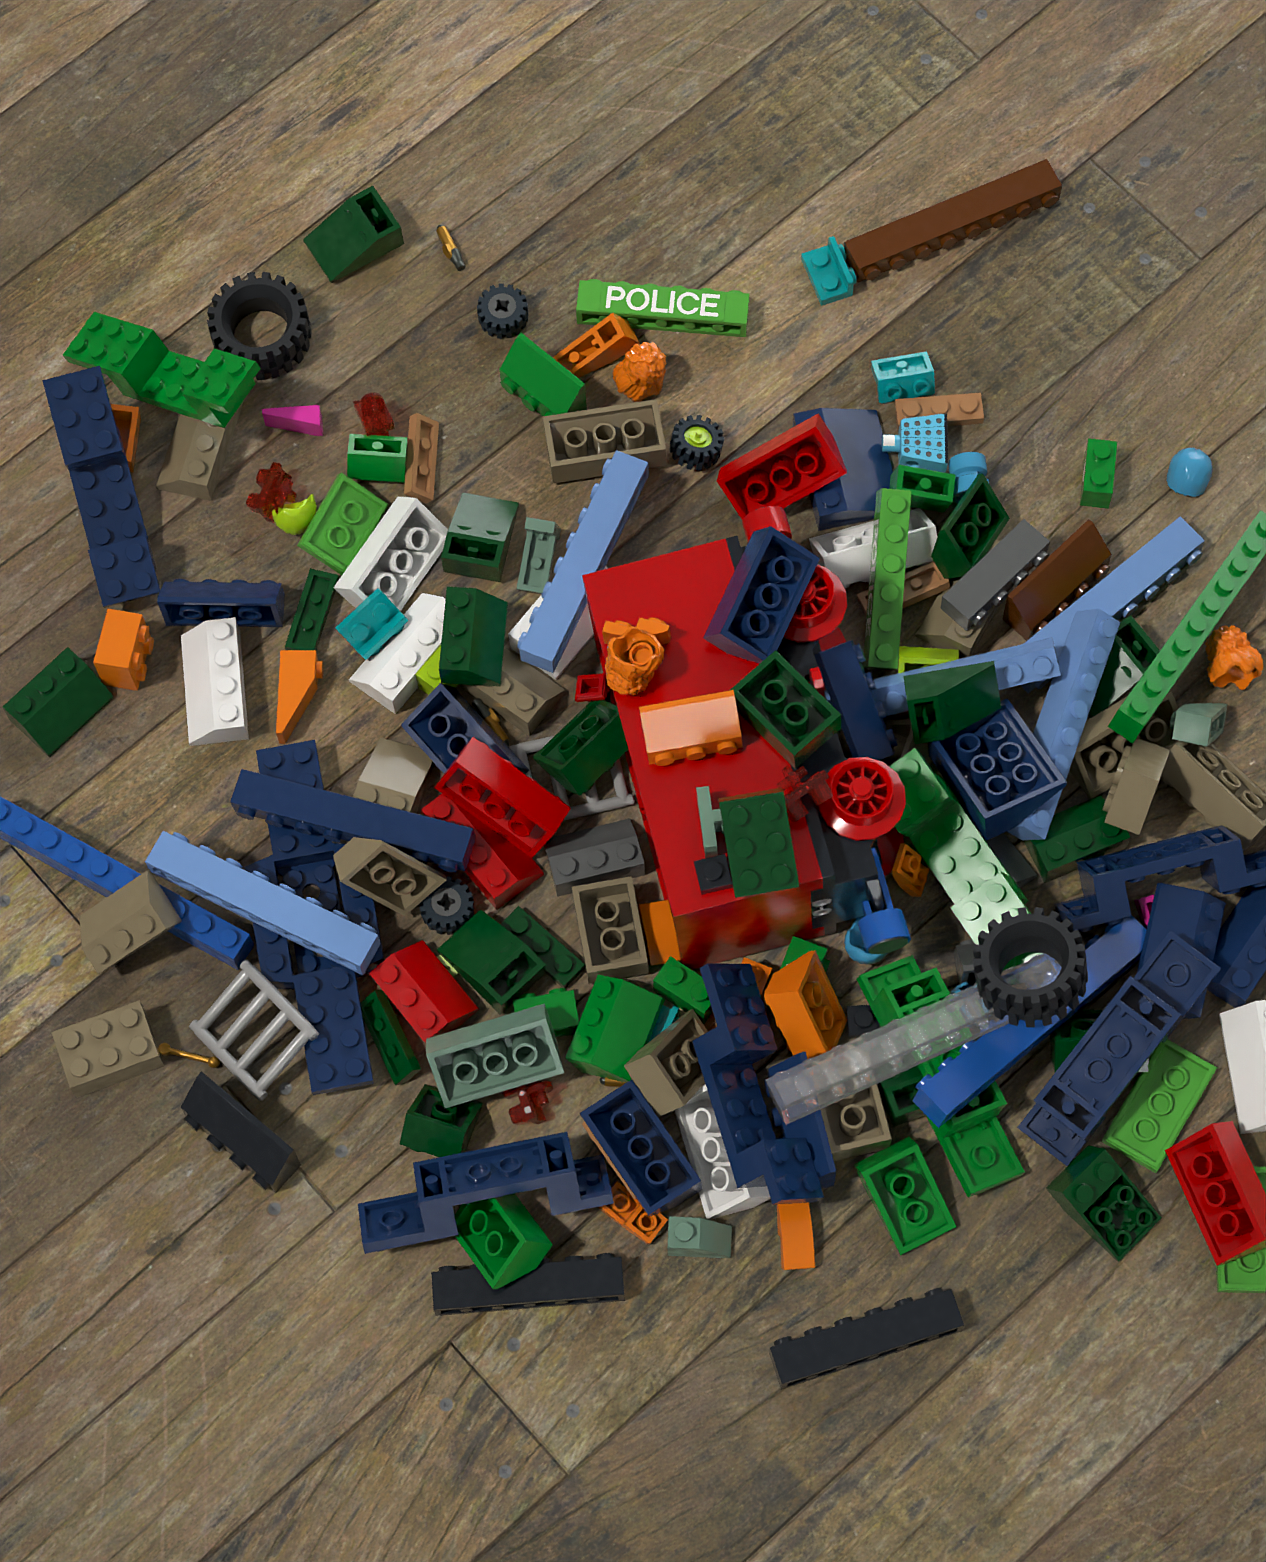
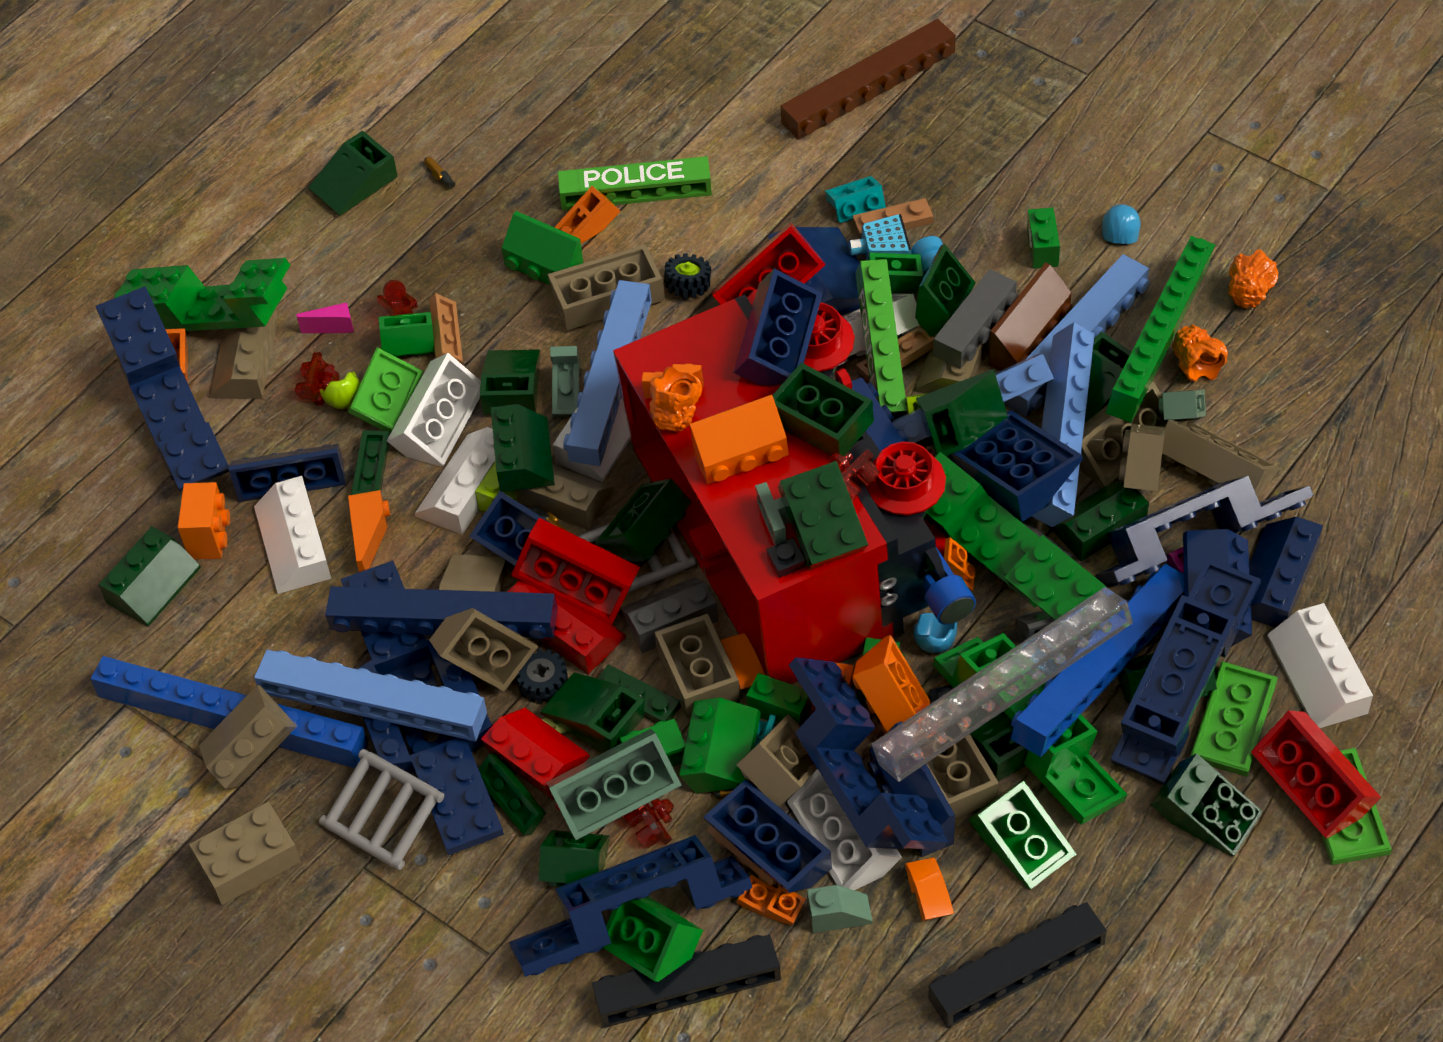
camera: 10 degrees left, 15 degrees down
(165, 1049) = (347, 848): pearl gold hinge -> none
(239, 1133) = (385, 898): black slope -> none
(255, 296) = (286, 231): black tyre -> none
(372, 624) = (427, 462): teal bracket -> none
(502, 321) = (494, 209): black wheel -> none
(591, 687) = (637, 475): red slope -> none
(641, 372) = (626, 227): orange hair -> none
(829, 272) = (773, 133): teal bracket -> none
(1023, 935) = (1088, 571): black tyre -> none

